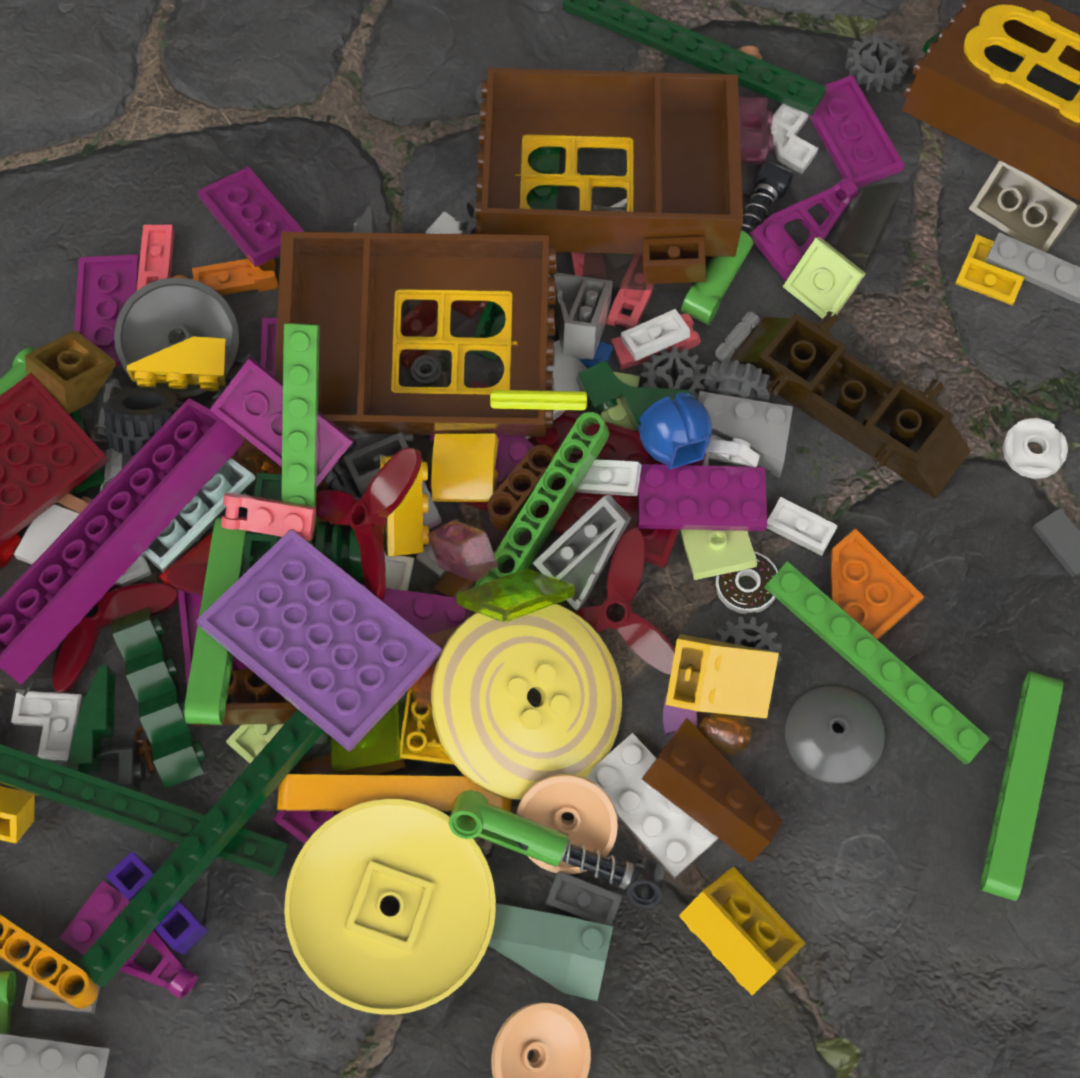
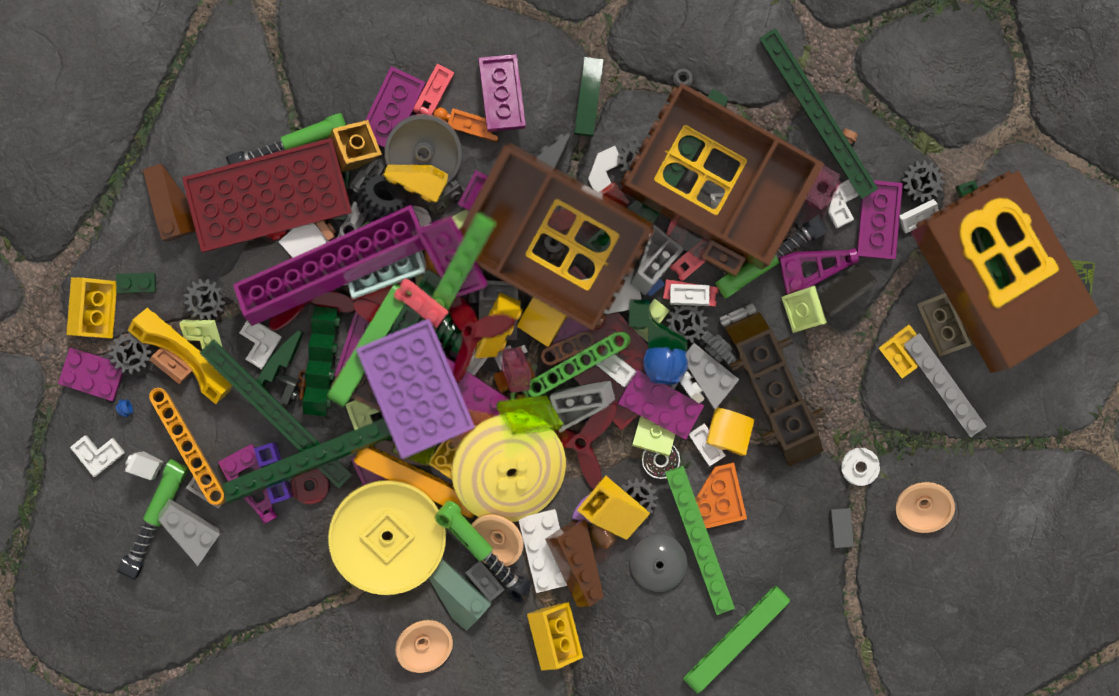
camera: 25 degrees right, 20 degrees up
(245, 909) = (310, 497): none -> dark red tile
(375, 170) = (588, 97): none -> dark green slope
(538, 400) = (595, 317): neon yellow axle -> none
(823, 488) = (730, 431): none -> yellow slope
(890, 109) = (917, 214): none -> white plate

